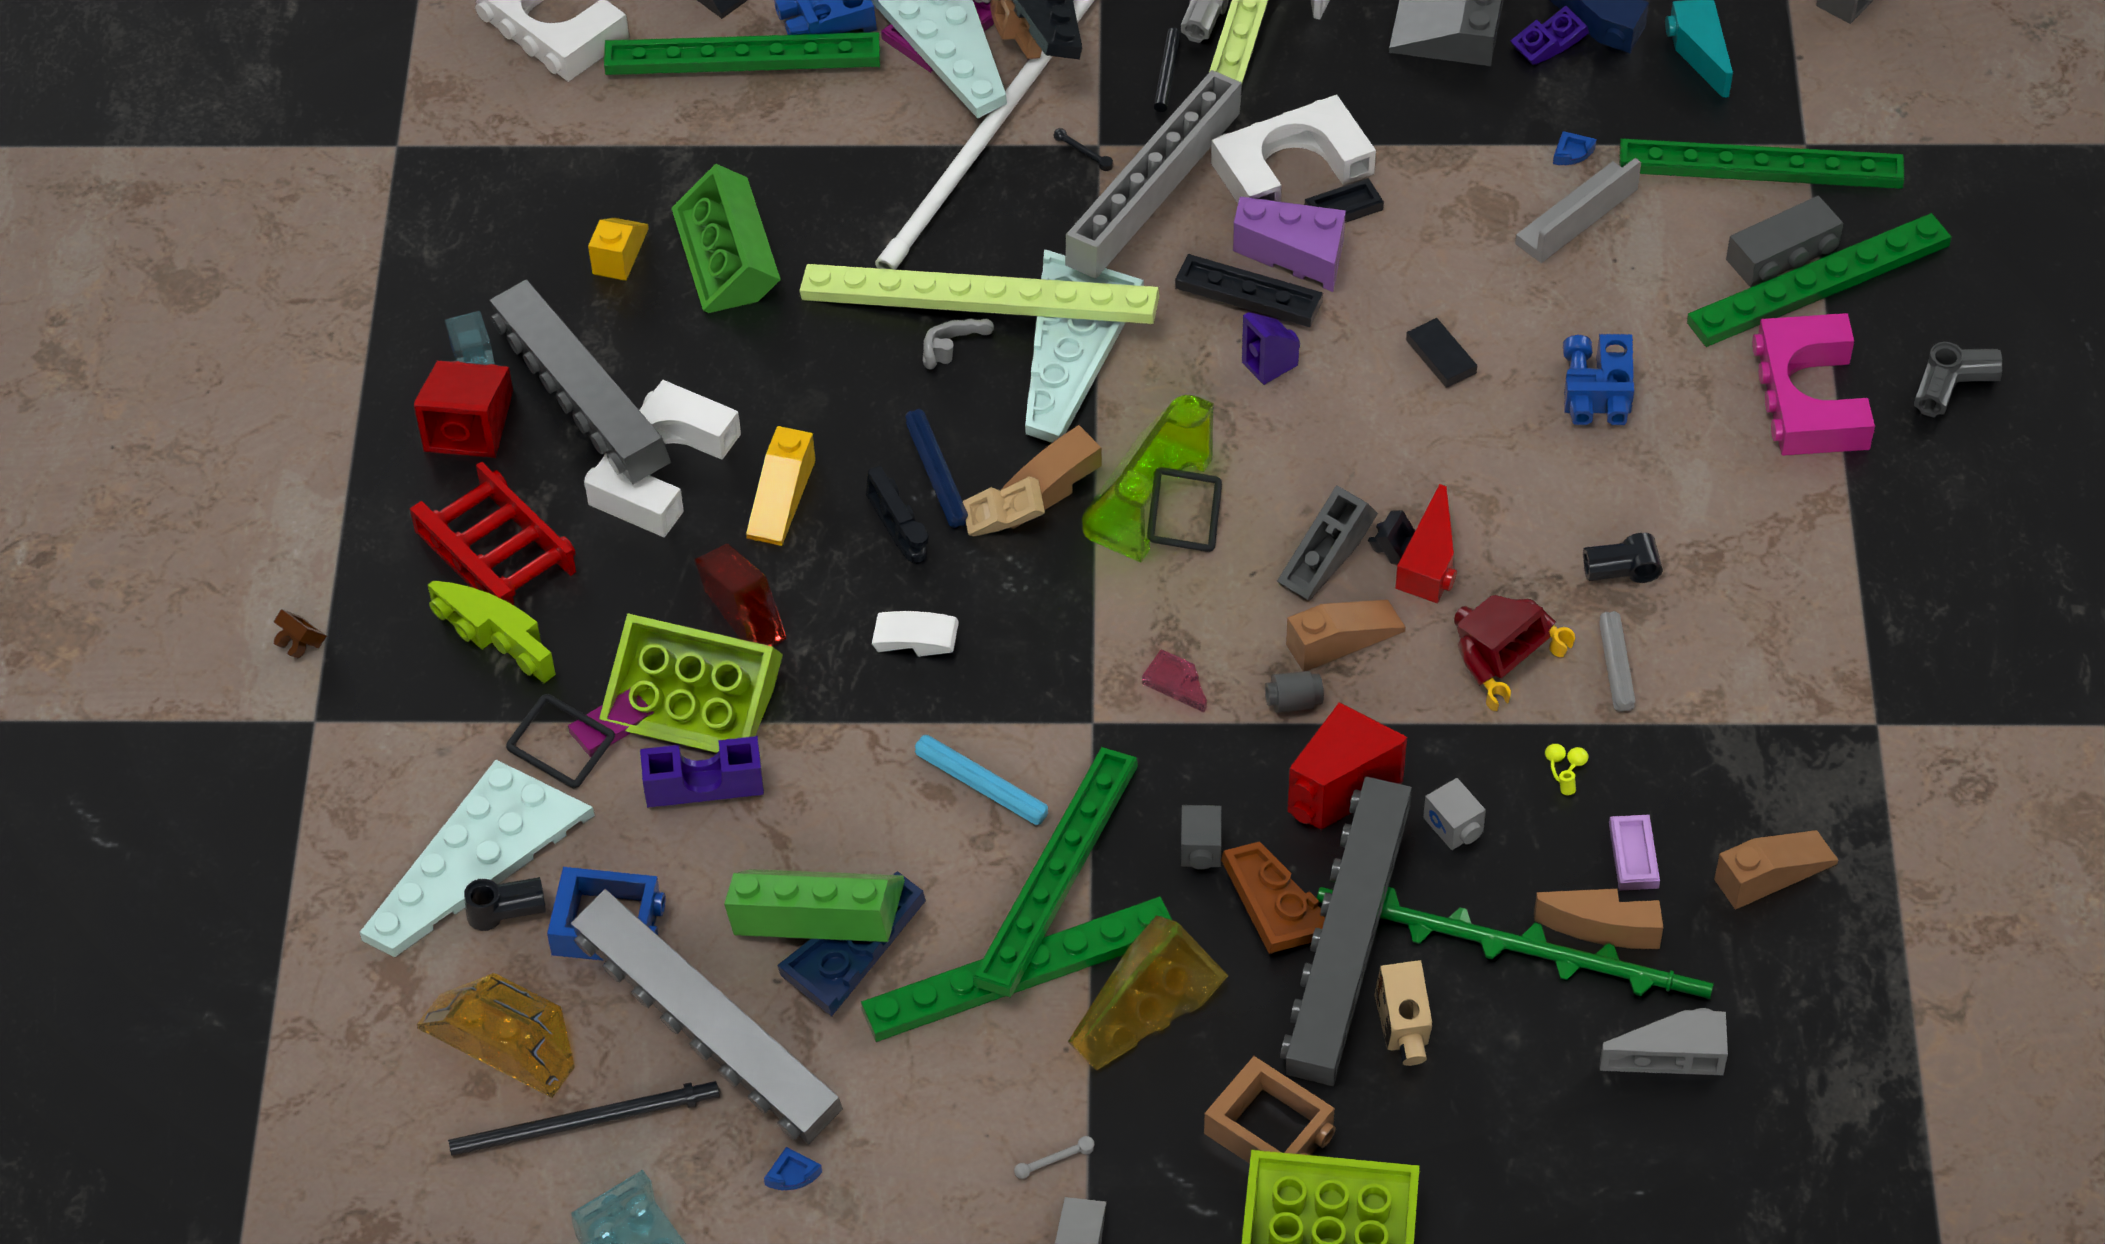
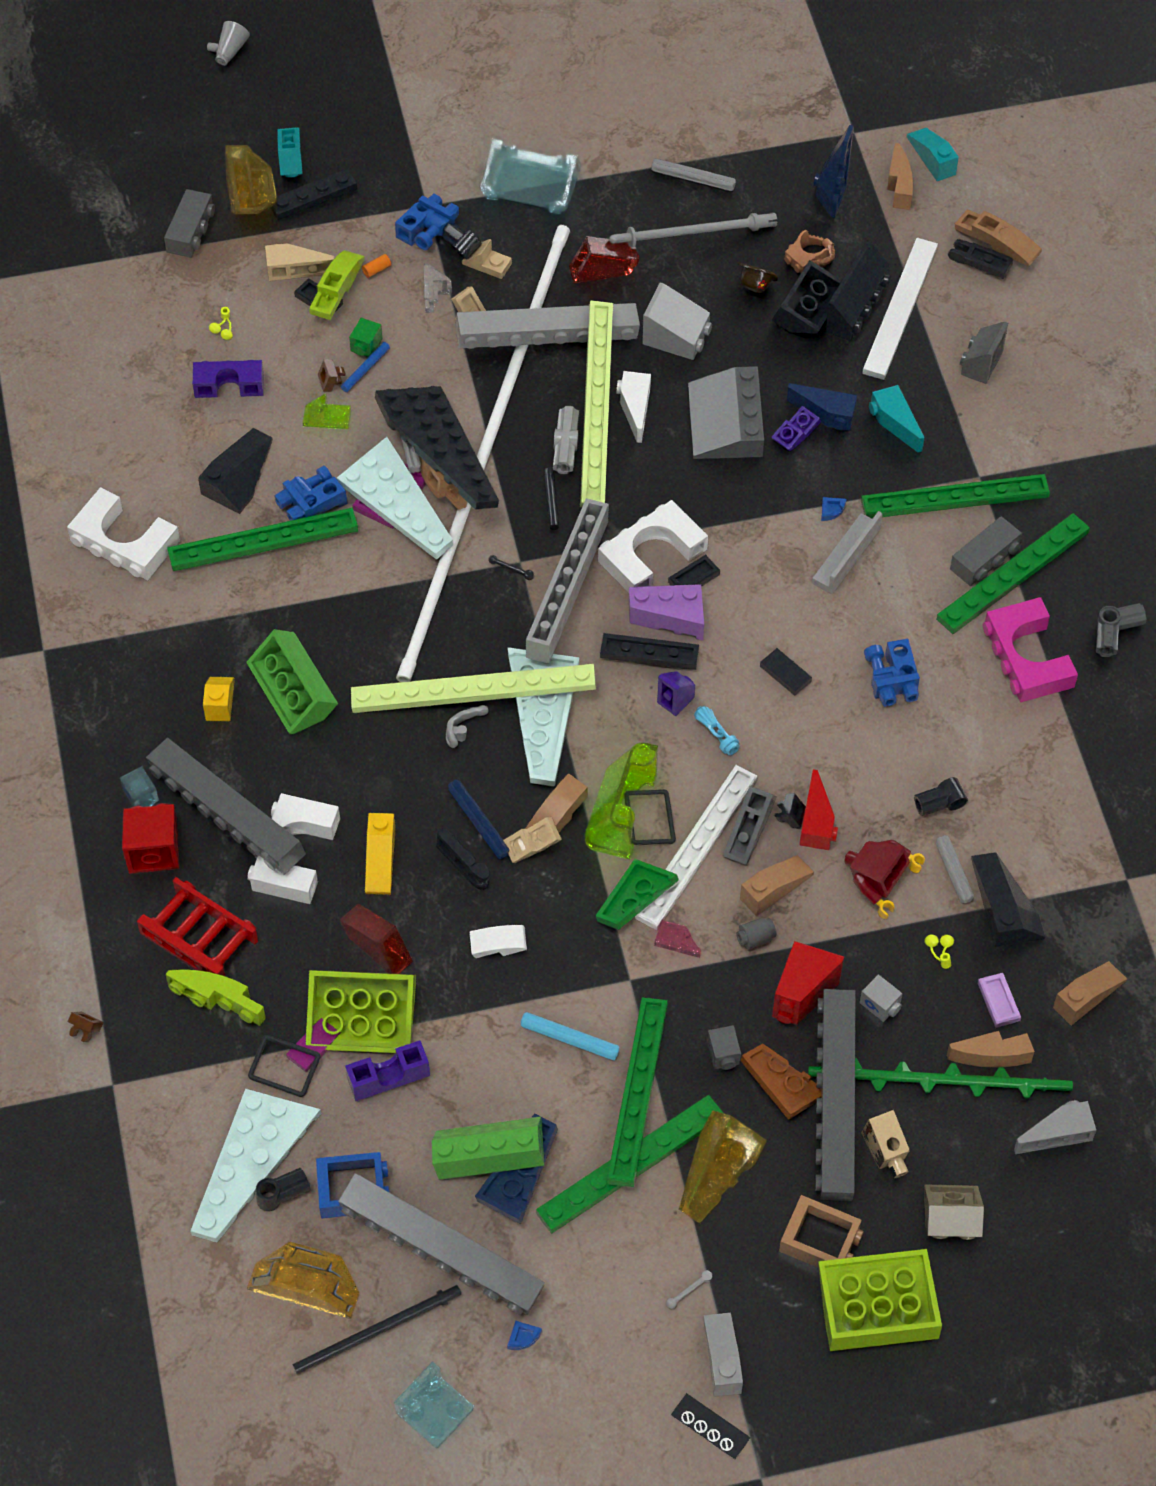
camera: 15 degrees left, 5 degrees up
(1130, 604) = (634, 892): none -> green wing
(1236, 565) = (700, 843): none -> white tile
(1328, 432) = (706, 716): none -> medium azure piece
(1479, 1128) = (953, 1211): none -> slope
(1681, 723) = (1007, 908): none -> black wedge

